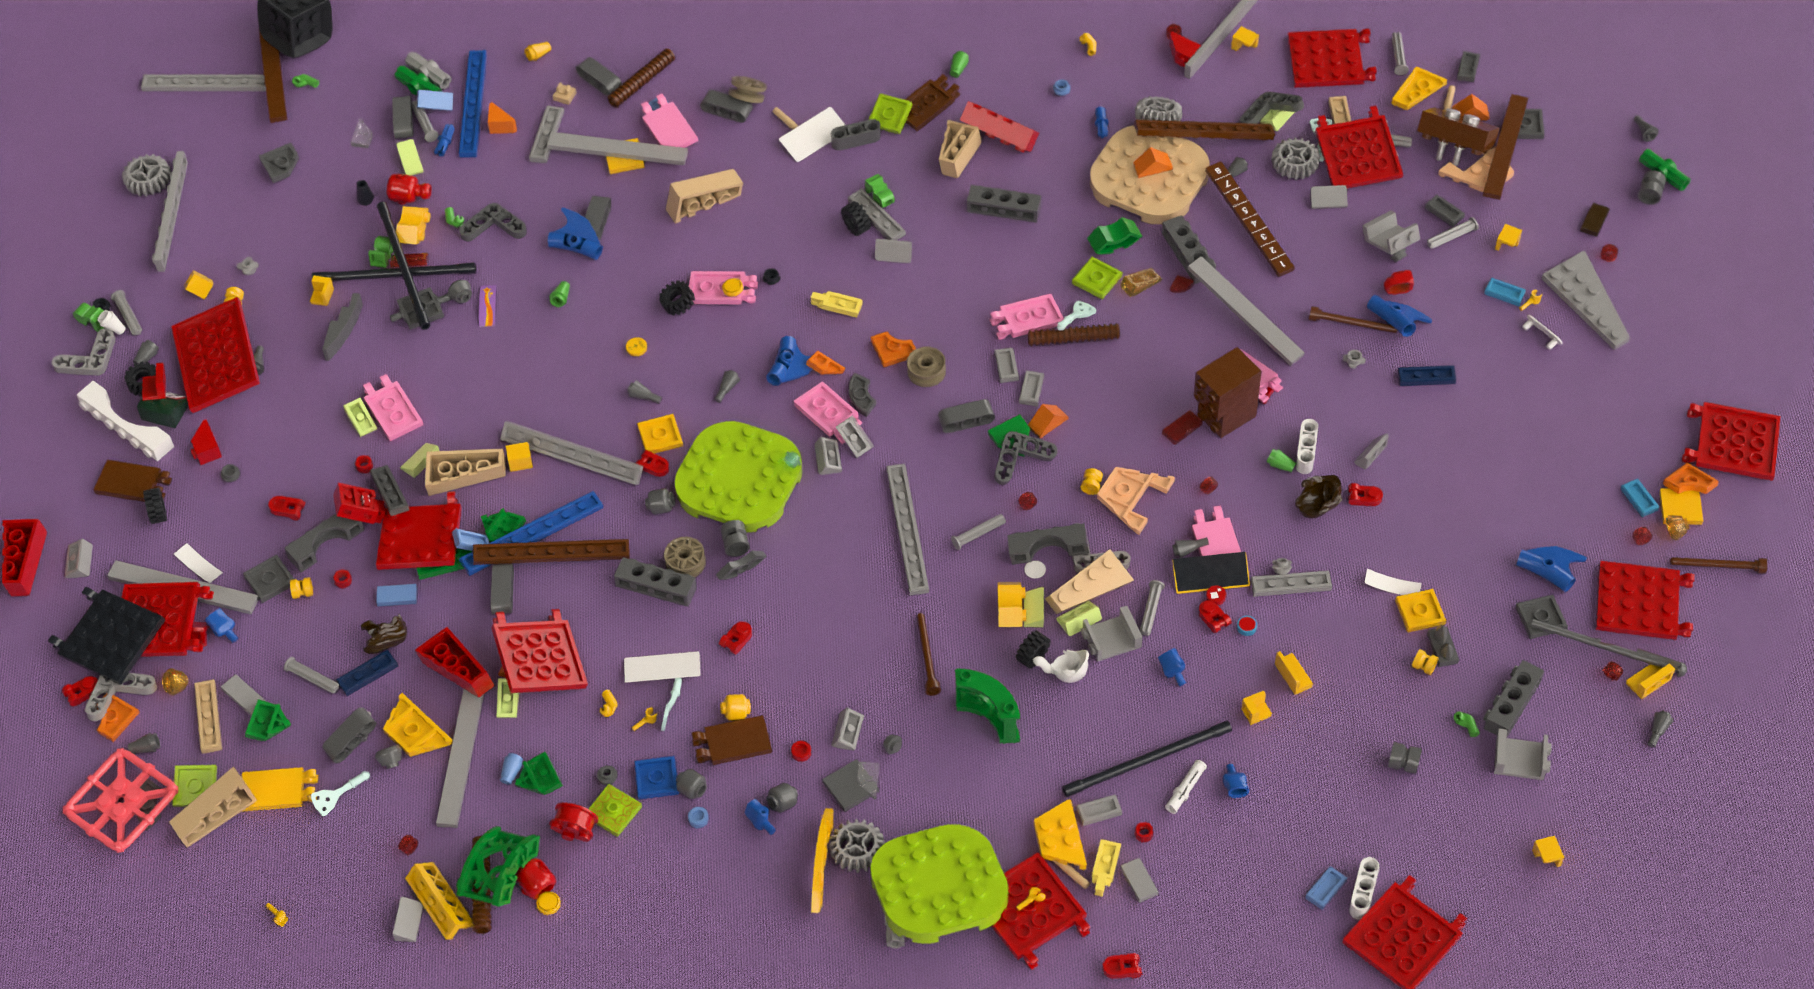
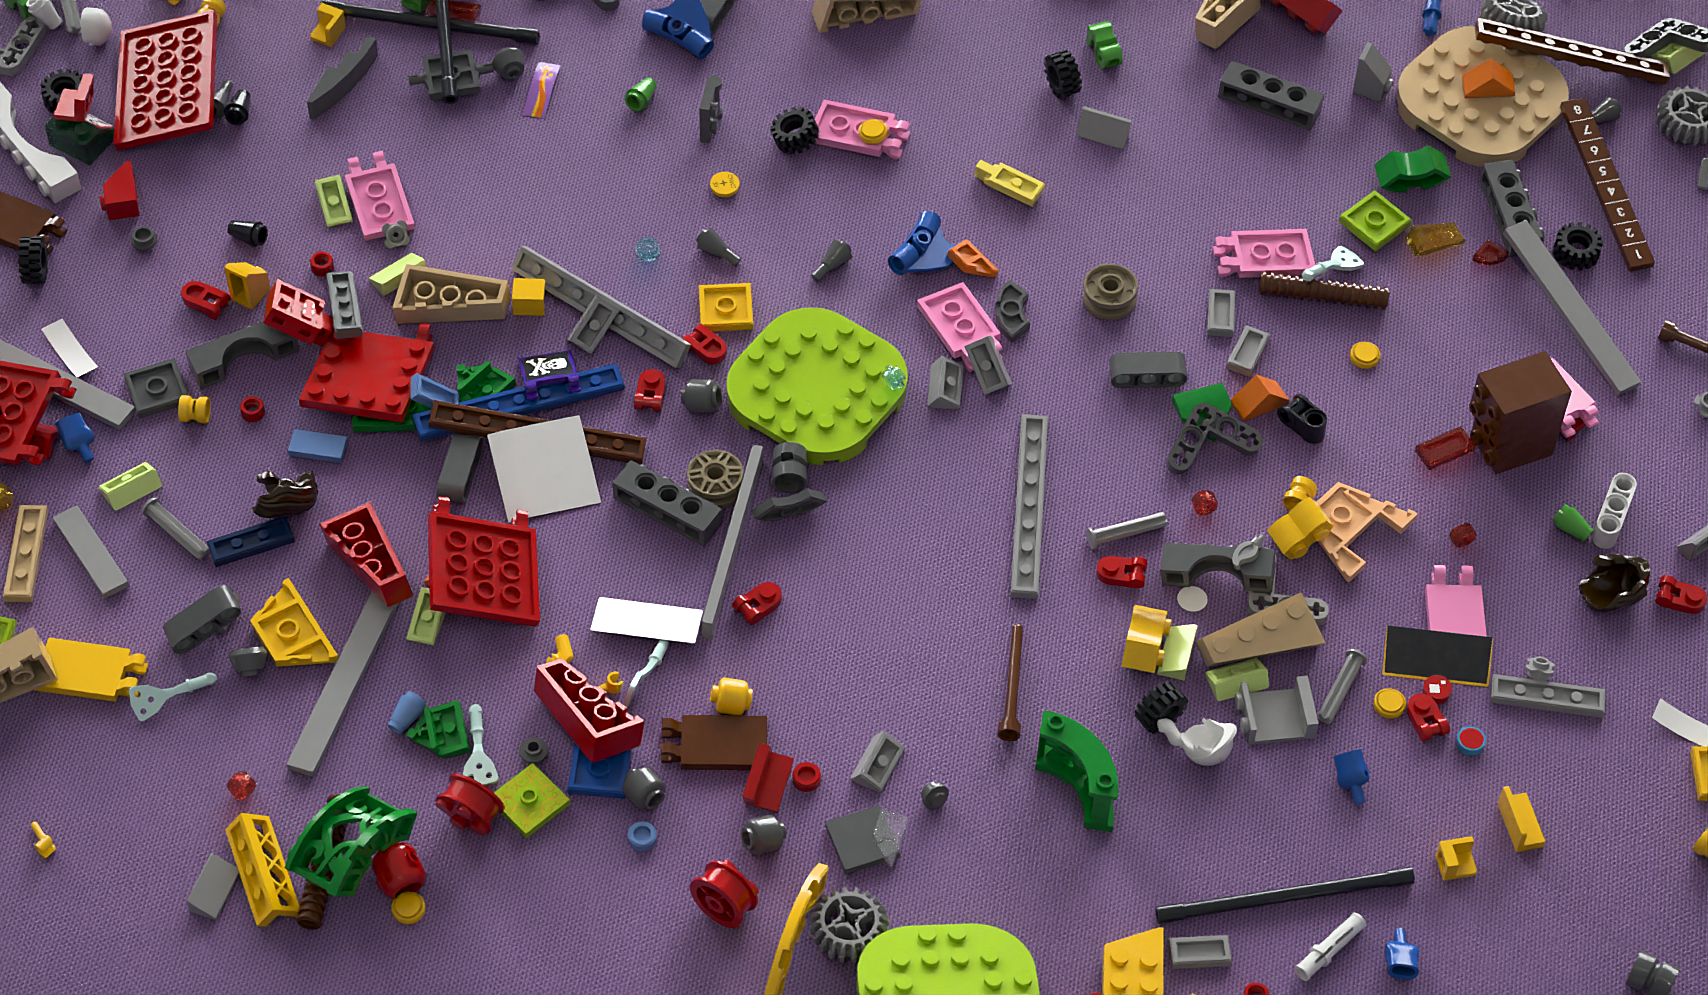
camera: 10 degrees right, 0 degrees up
(146, 352) = (79, 58): dark grey cone -> none
(152, 326) = (95, 26): none -> white hair
(266, 721) = (98, 577): green slope -> none
(270, 652) = (131, 486): none -> yellowish green slope
(272, 364) = (237, 109): none -> black cone
(305, 452) = (250, 232): none -> black cone
(314, 490) = (246, 283): none -> yellow slope
(416, 431) = (401, 239): none -> light grey plate
(547, 505) = (547, 370): none -> flag
(562, 575) = (544, 467): none -> white sticker
(569, 787) = (478, 756): none -> light aqua piece
(570, 466) = (593, 324): none -> light grey slope
(594, 405) = (647, 249): none -> clear light blue plate
(613, 295) = (710, 109): none -> dark grey plate
(622, 500) = (650, 384): none -> red plate
(638, 740) = (585, 711): none -> red wedge
(708, 599) = (732, 542): none -> light grey tile
(758, 816) = (723, 847): blue piece -> none
(766, 843) = (724, 893): none -> red wheel
(771, 276) = (930, 128): black plate -> none
(775, 758) = (767, 779): none -> red panel
(878, 216) = (1095, 78): light grey tile -> none
(891, 349) = (1067, 259): orange tile -> none
(975, 561) = (1111, 571): none -> red plate
(1066, 529) = (1247, 551): none -> light grey piece
(1071, 174) = (1372, 74): none -> light grey slope
(1081, 427) = (1304, 419): none -> black piece
(1097, 505) = (1300, 528): none -> yellow brick
(1112, 374) = (1365, 355): none -> yellow piece
(1184, 547) = (1408, 613): dark grey cone -> none
(1186, 612) = (1389, 703): none -> yellow piece
(1240, 274) = (1581, 235): none -> black tyre

